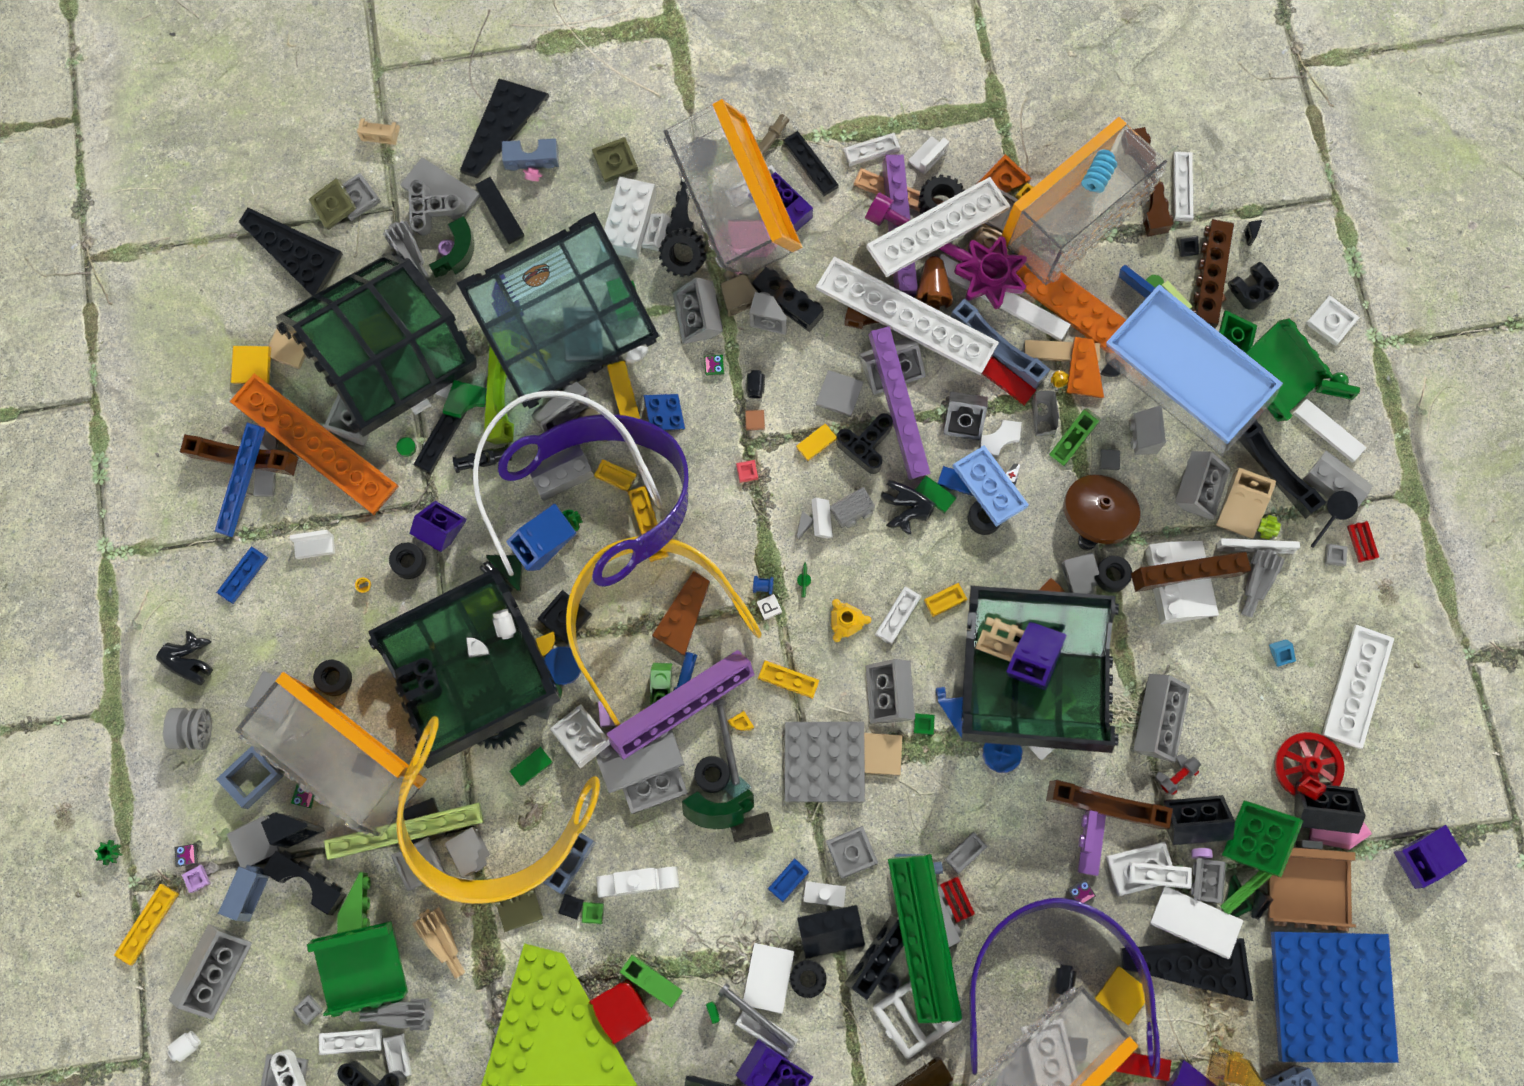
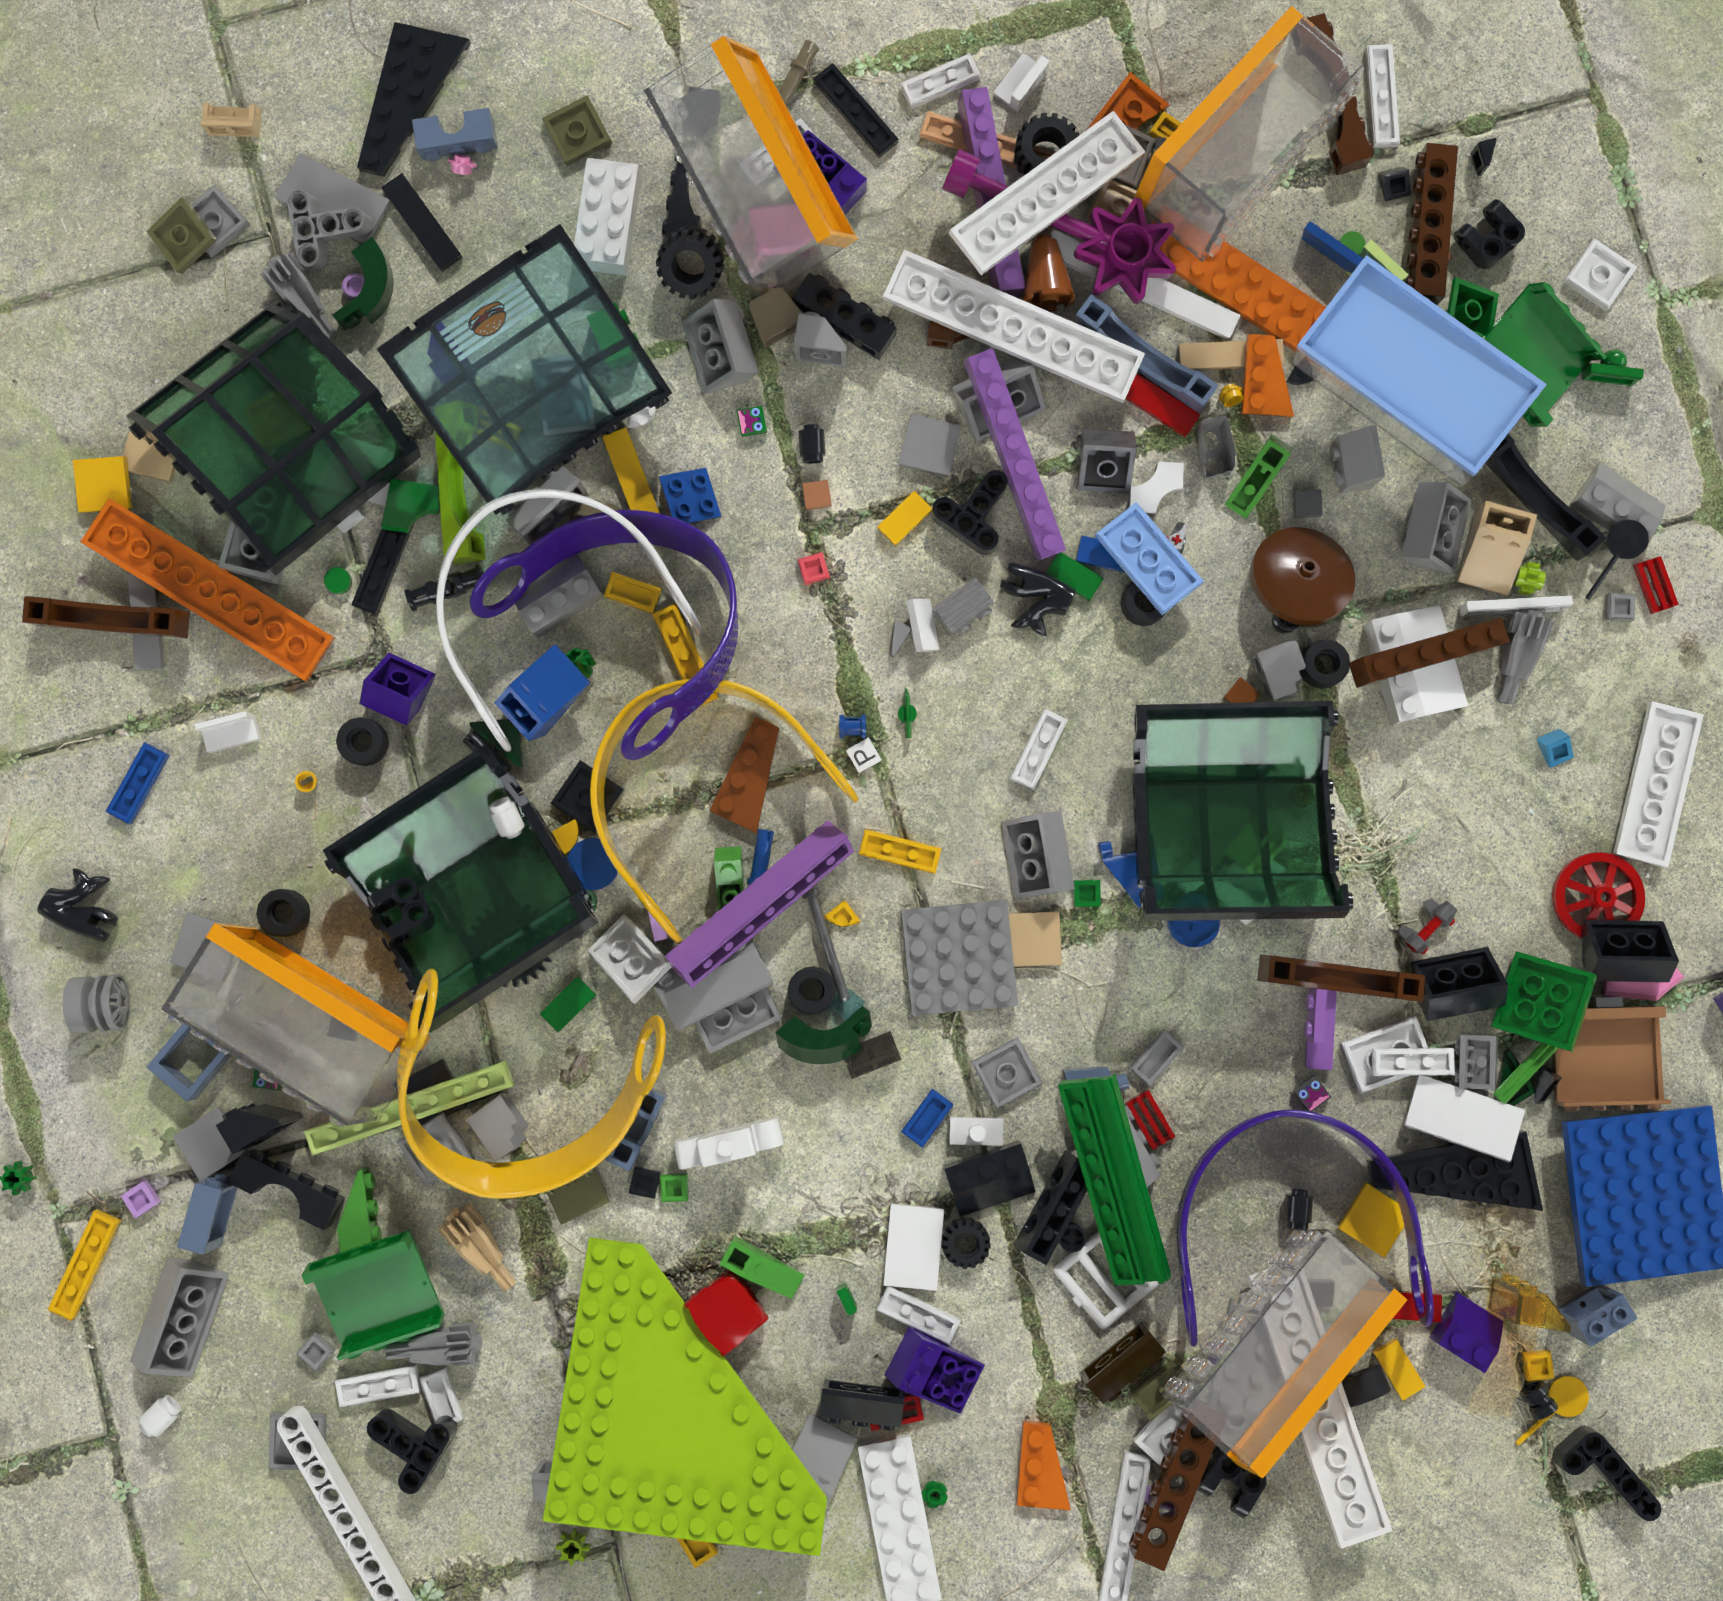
camera: 10 degrees left, 10 degrees up
(186, 855) = (122, 1169): tile -> none
(239, 479) = (112, 651): blue tile -> none
(300, 255) = (148, 316): black wing -> none
(476, 648) = (473, 854): white tile -> none
(656, 231) = (648, 233): white slope -> none
(756, 1015) = (902, 1297): flat silver bar -> none
(846, 620) = (970, 763): yellow rock -> none
(945, 600) = (1100, 721): yellow tile -> none
(996, 644) = (1176, 779): tan plate -> none
(1036, 655) = (1232, 789): dark purple slope -> none
(1100, 171) = (1272, 94): medium azure piece -> none
(1162, 717) = (1401, 852): light grey slope -> none
(1203, 853) = (1465, 1027): lavender tile -> none
(1312, 788) = (1605, 928): red tile -> none
(1329, 430) = (1603, 433): white tile -> none

